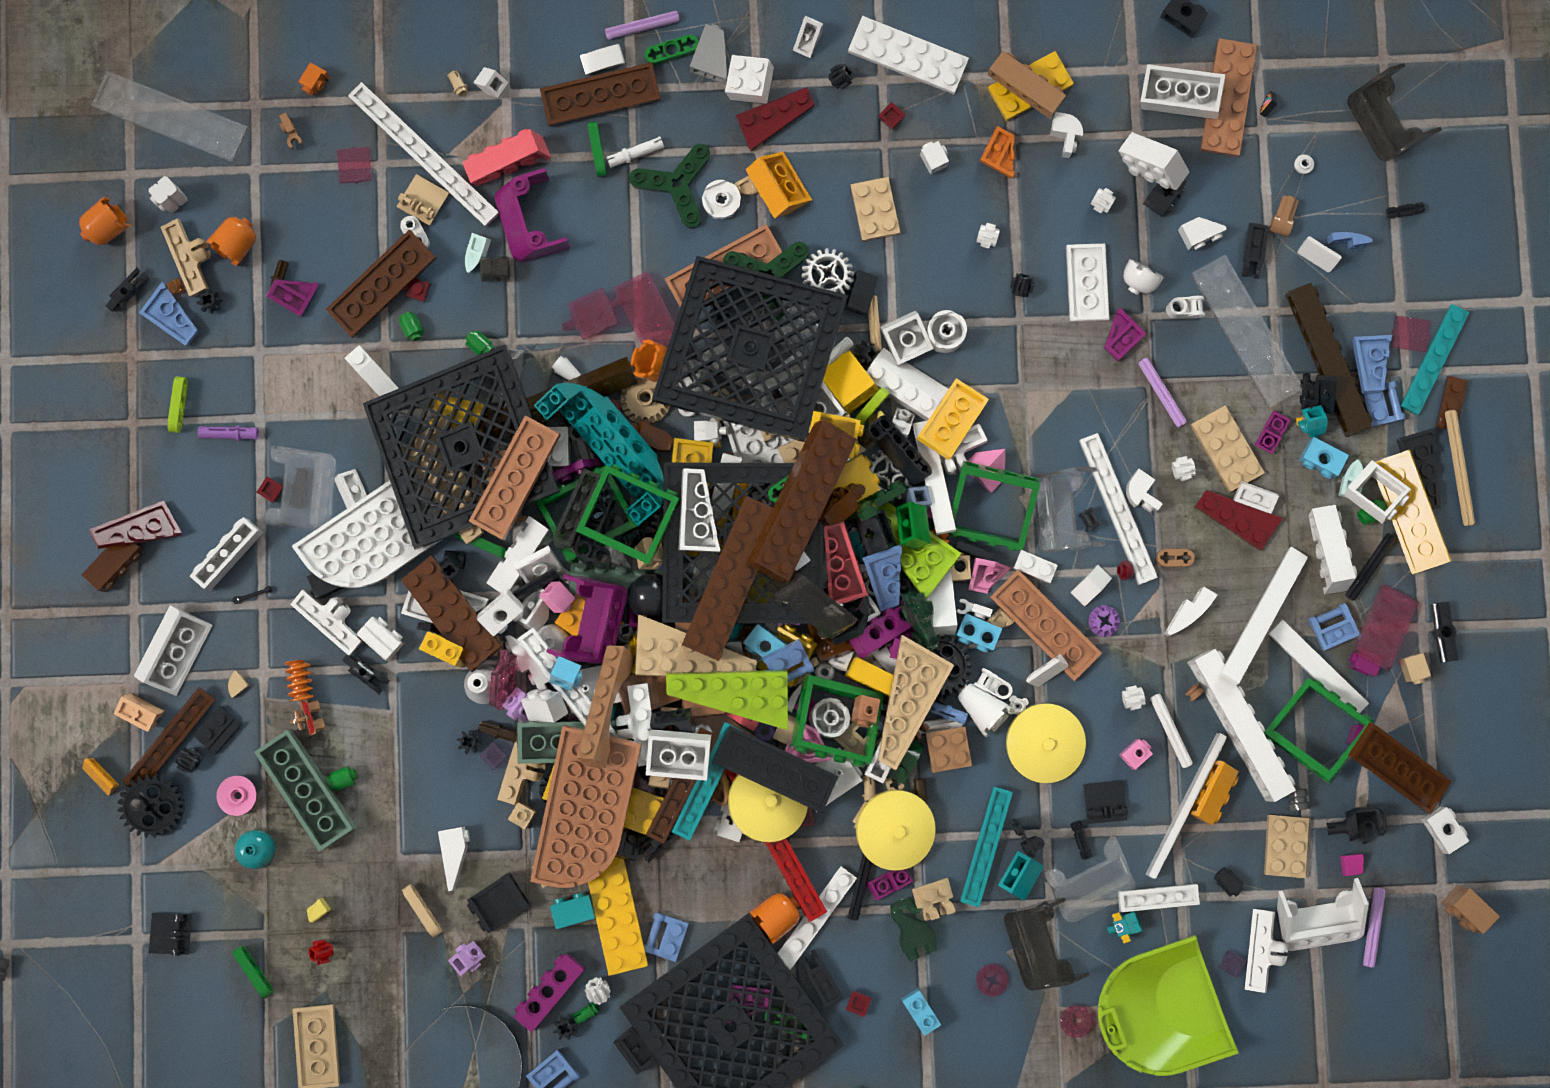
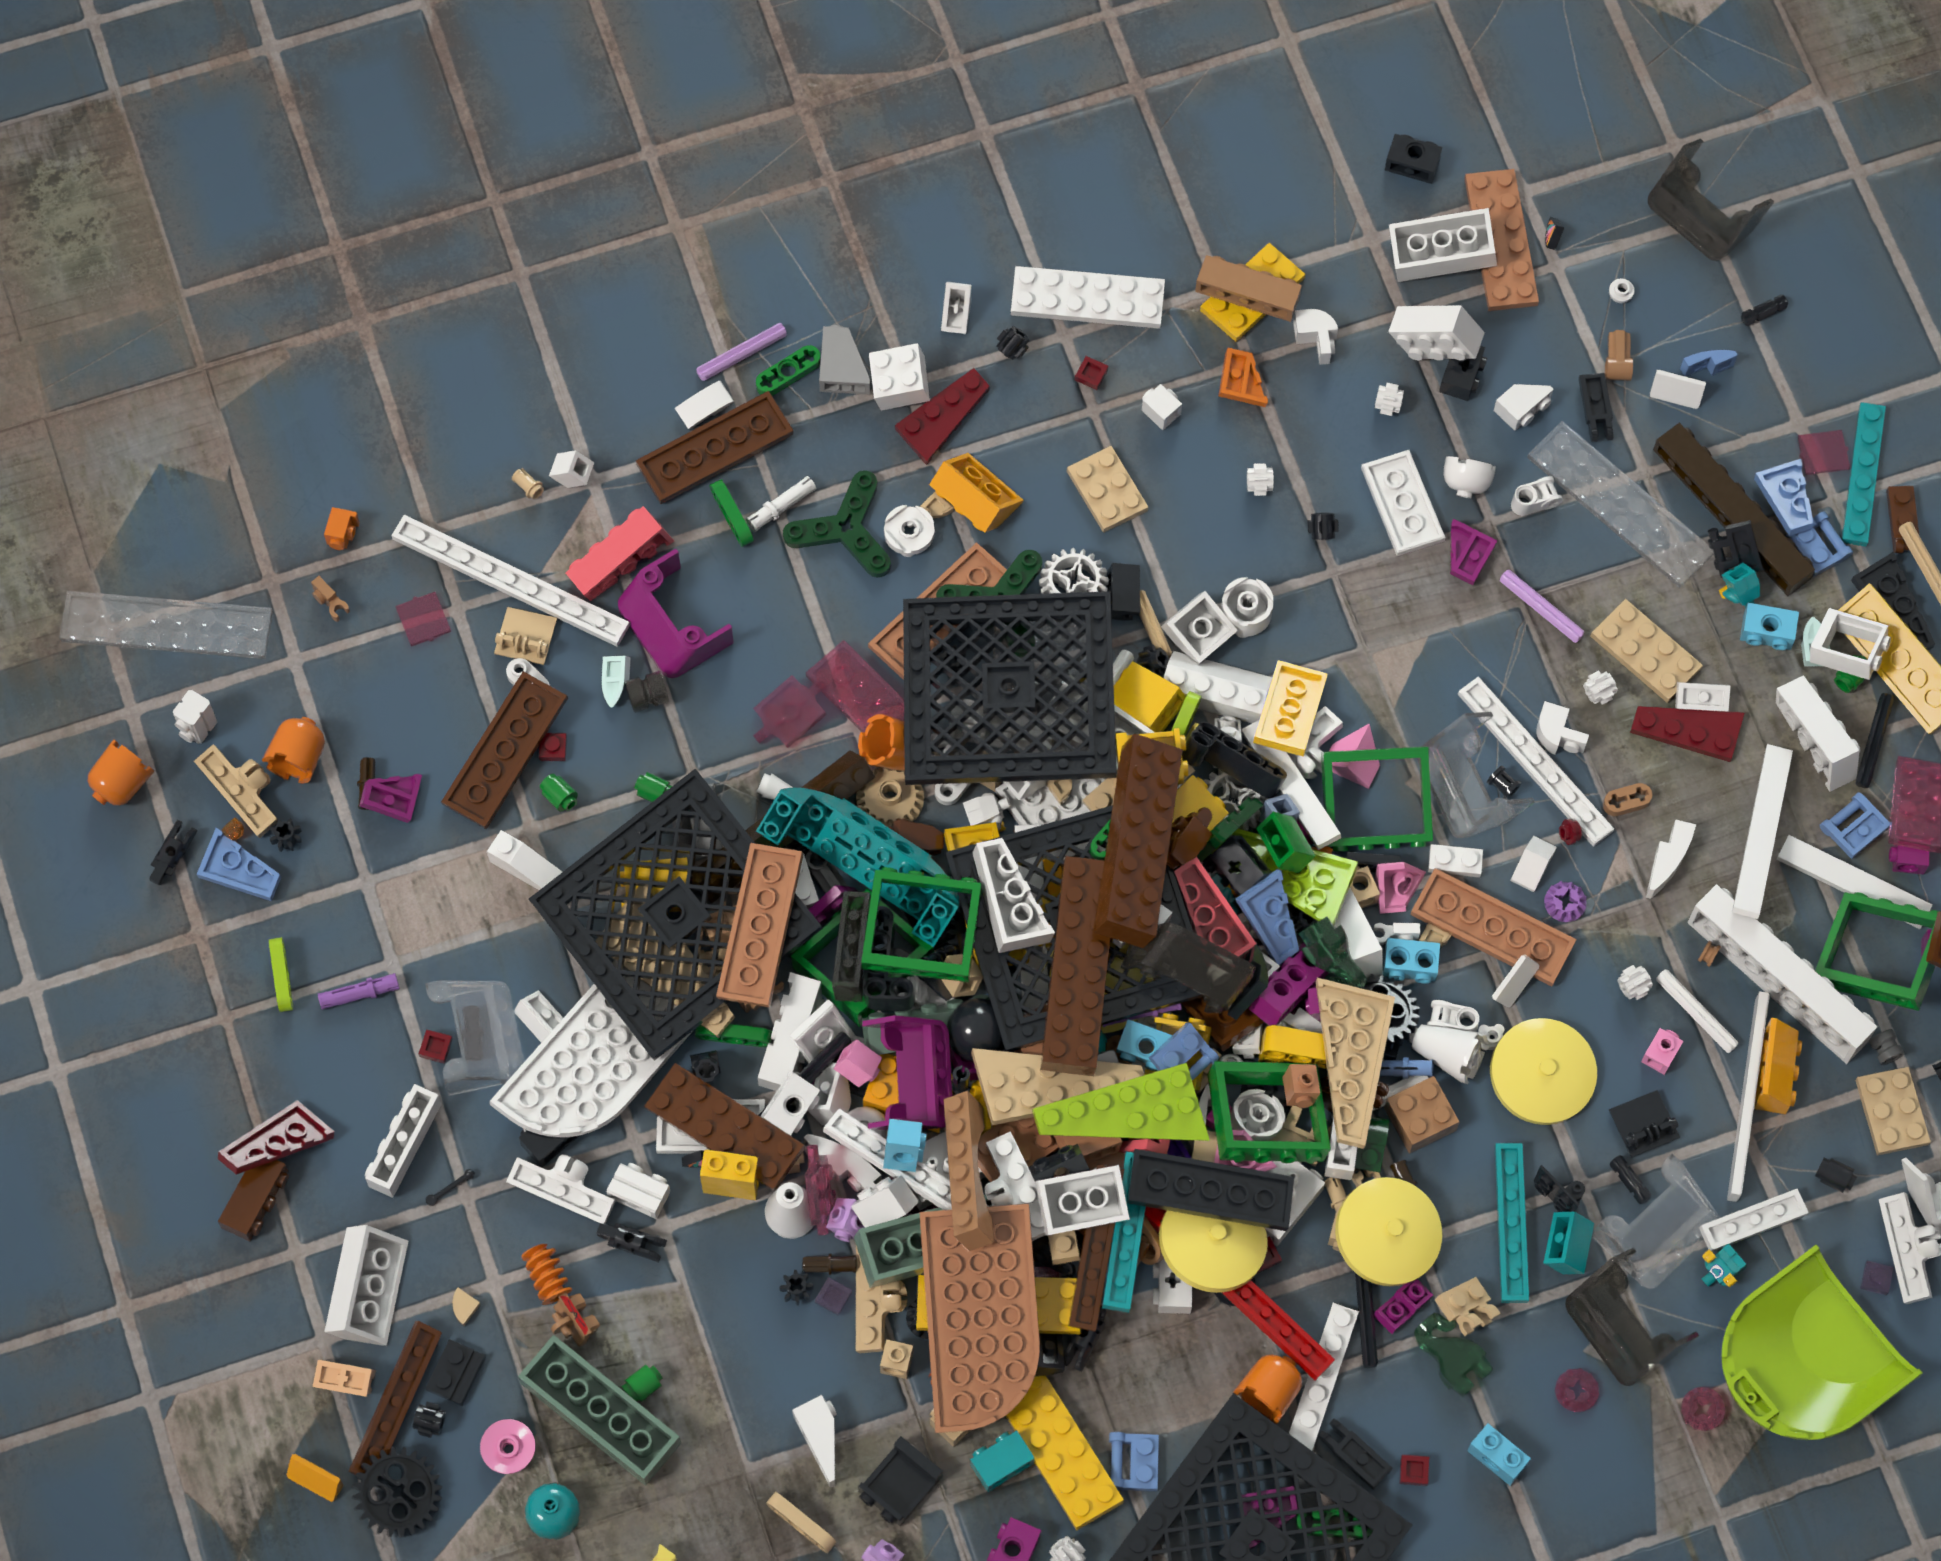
camera: 20 degrees left, 15 degrees down
(1272, 432) = (1695, 614): magenta slope -> none

